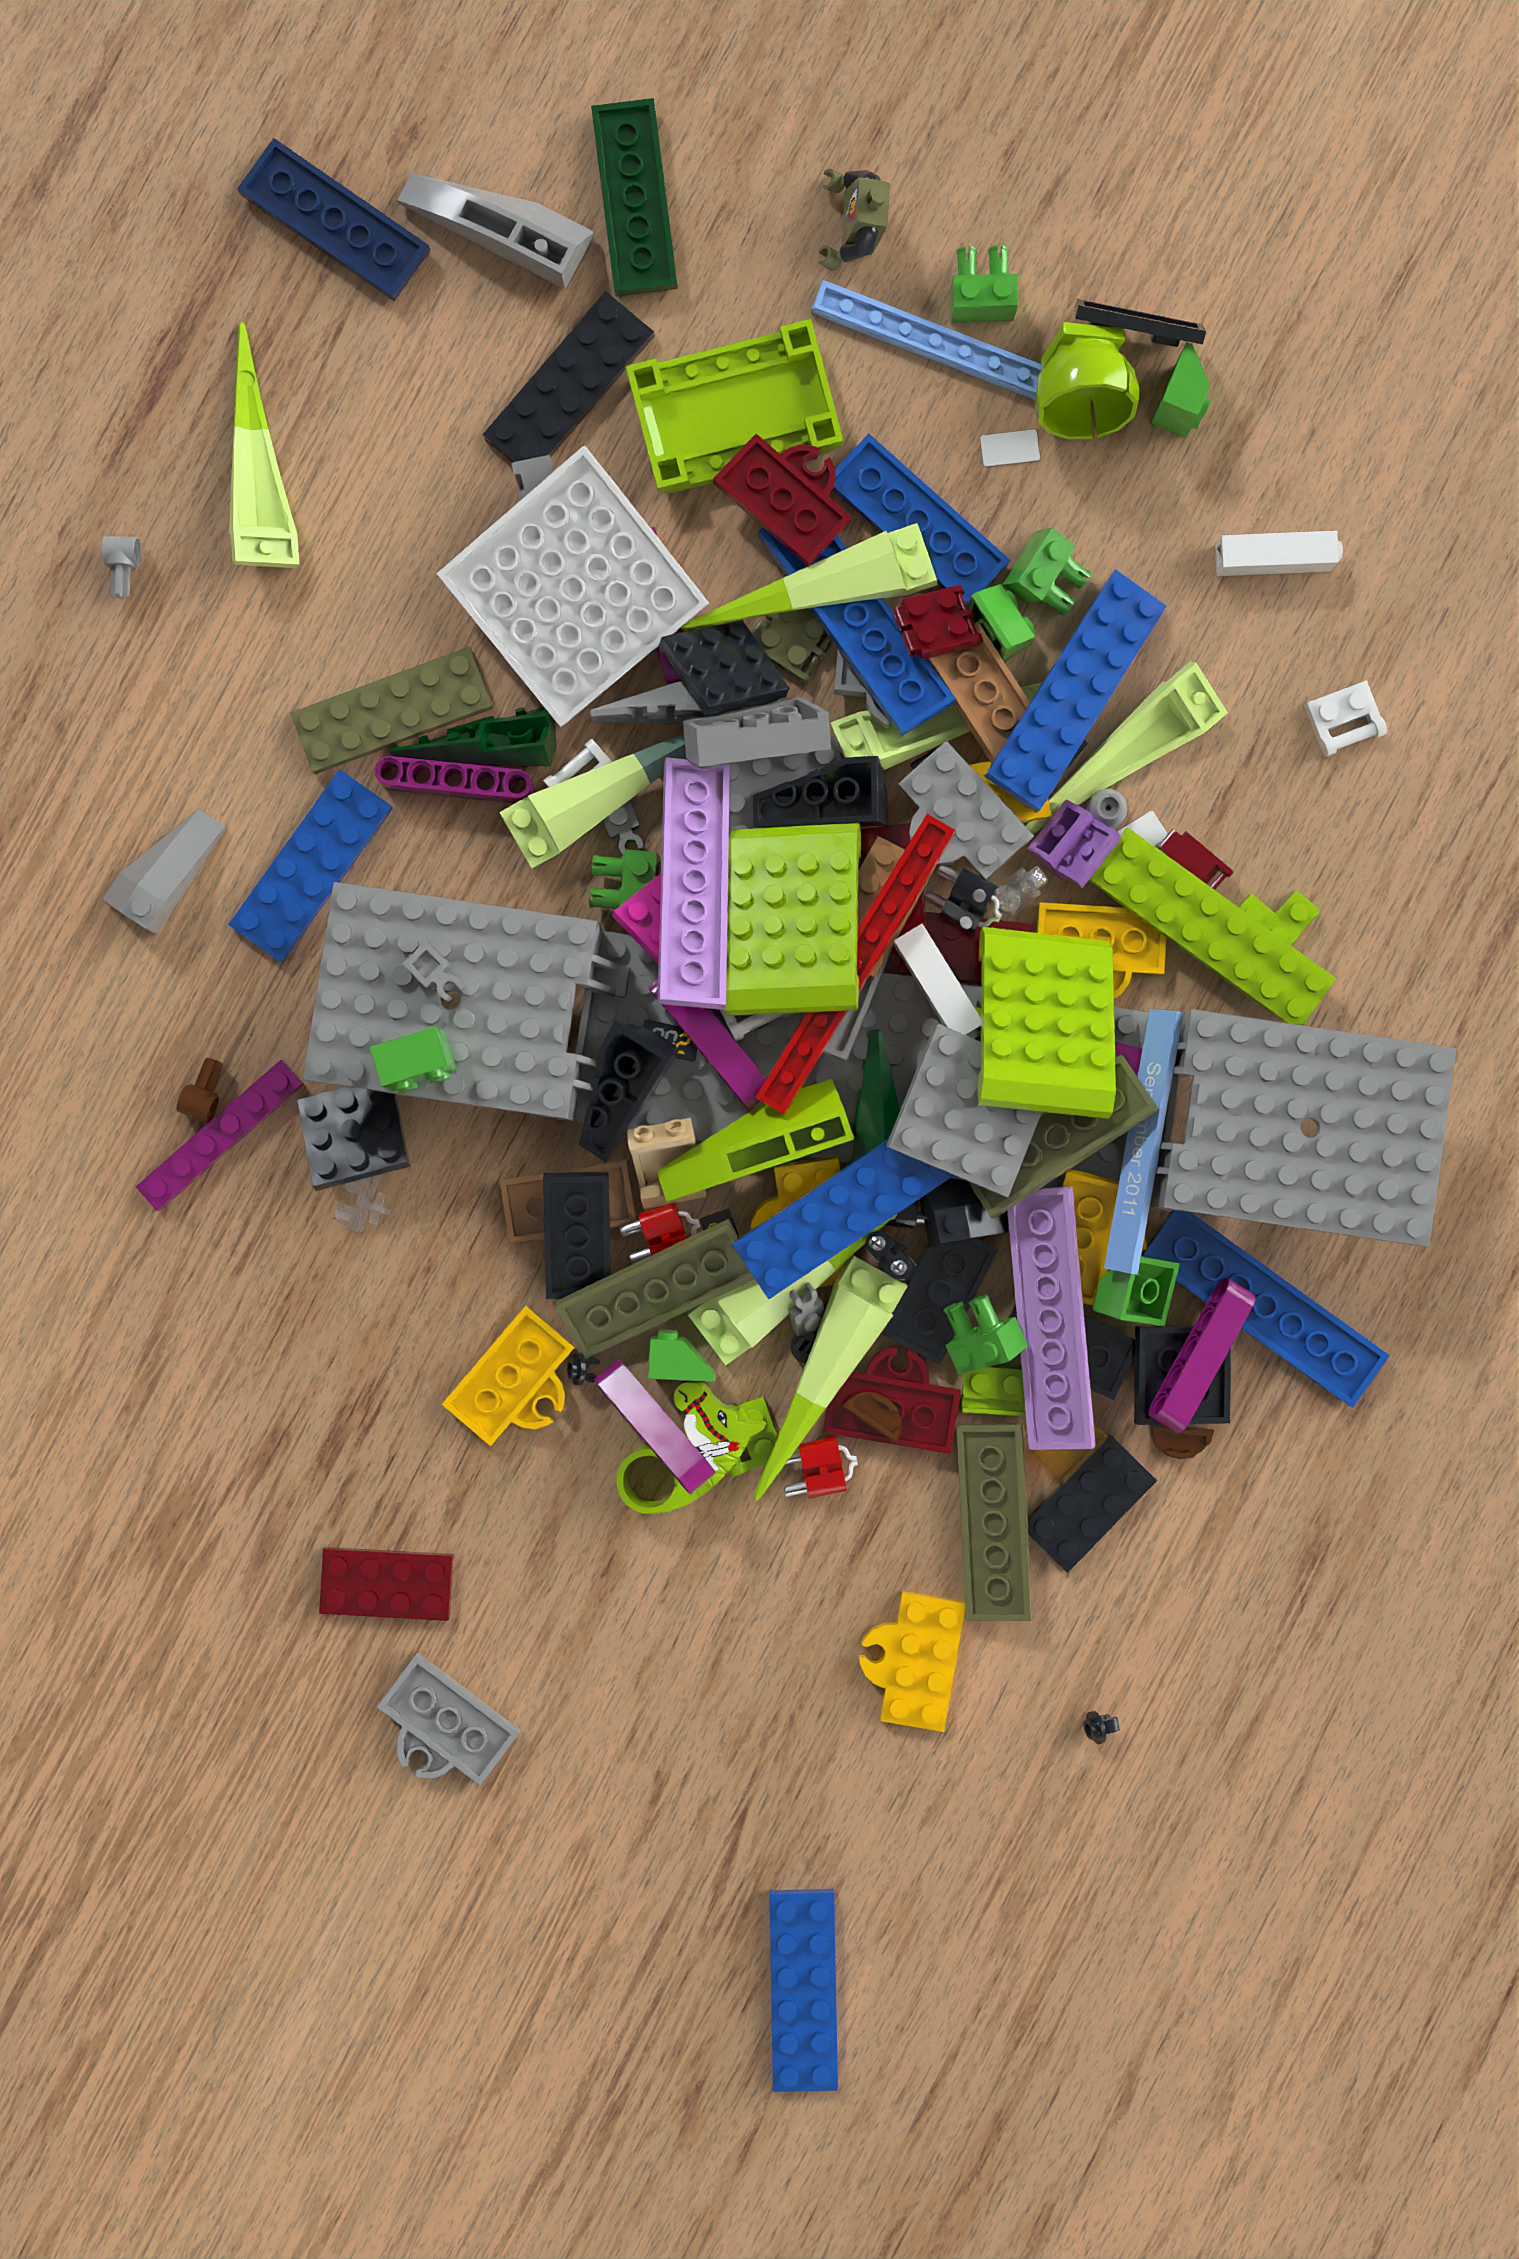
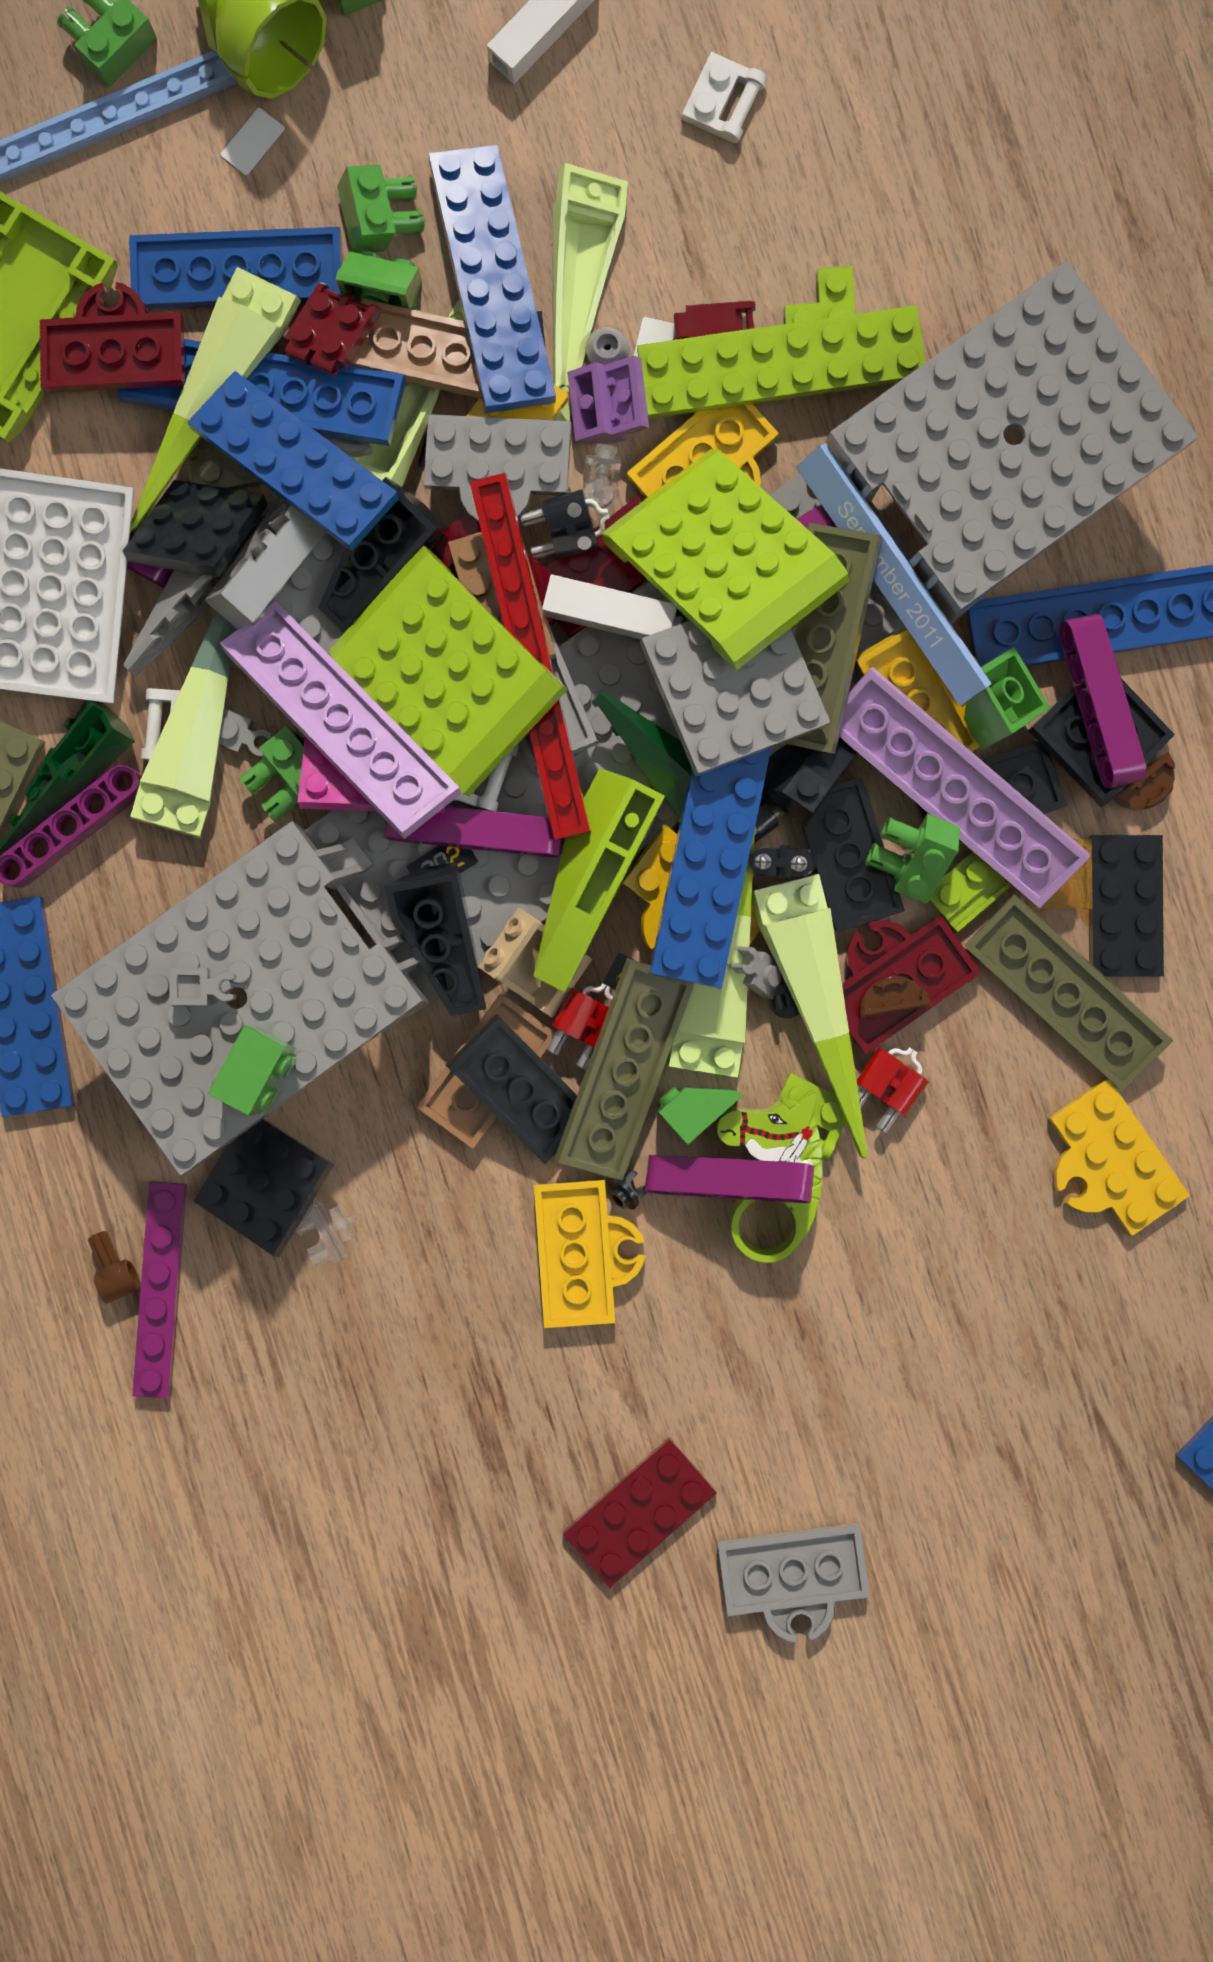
camera: 40 degrees left, 0 degrees up
(828, 687) = (293, 460): none -> blue plate

